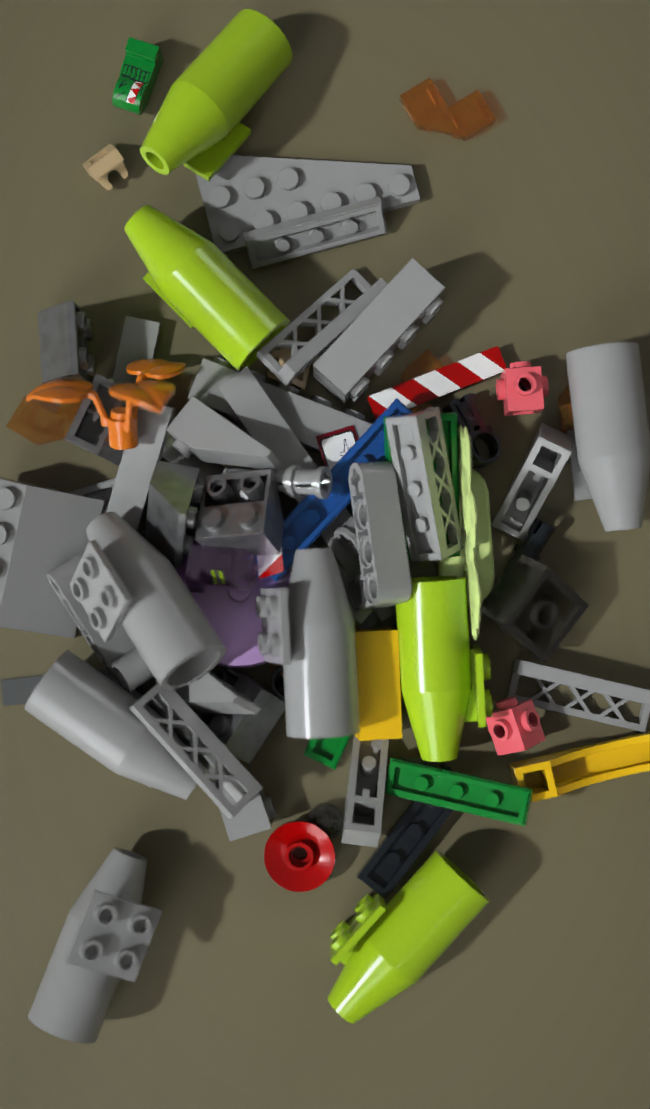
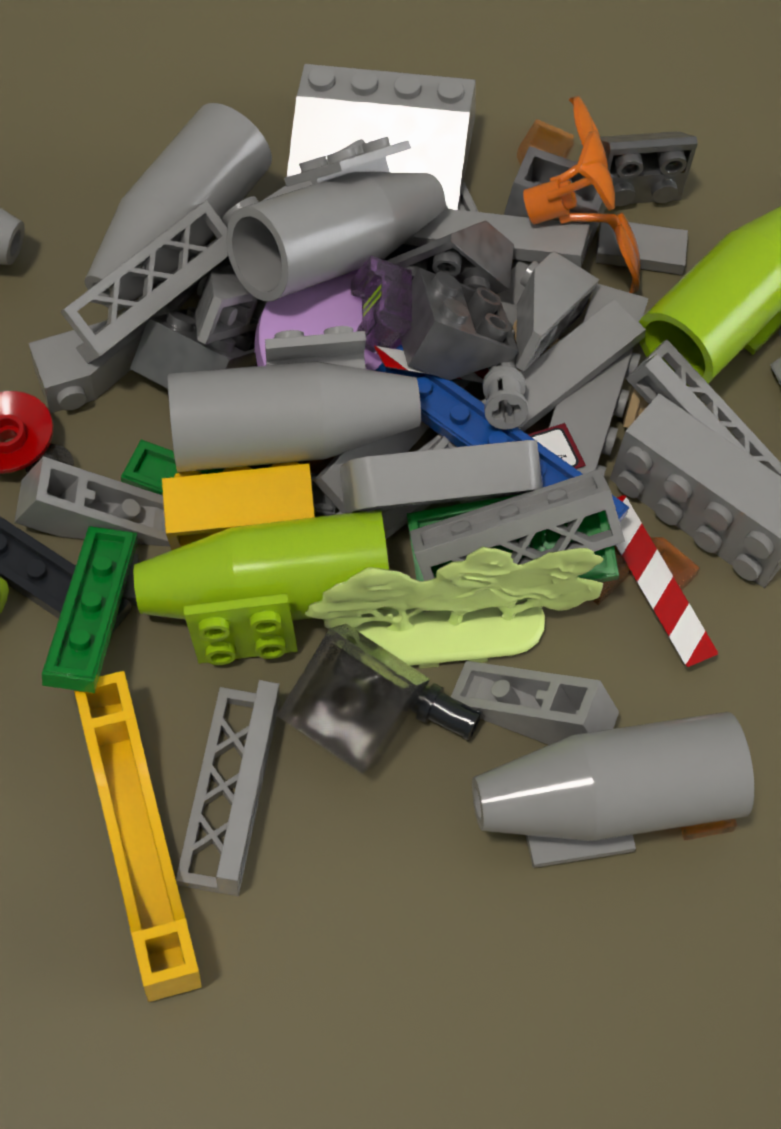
camera: 80 degrees right, 25 degrees down
(469, 416) = (599, 621): black piece -> none
(514, 726) = (184, 687): coral brick -> none
(519, 401) = (661, 680): coral brick -> none

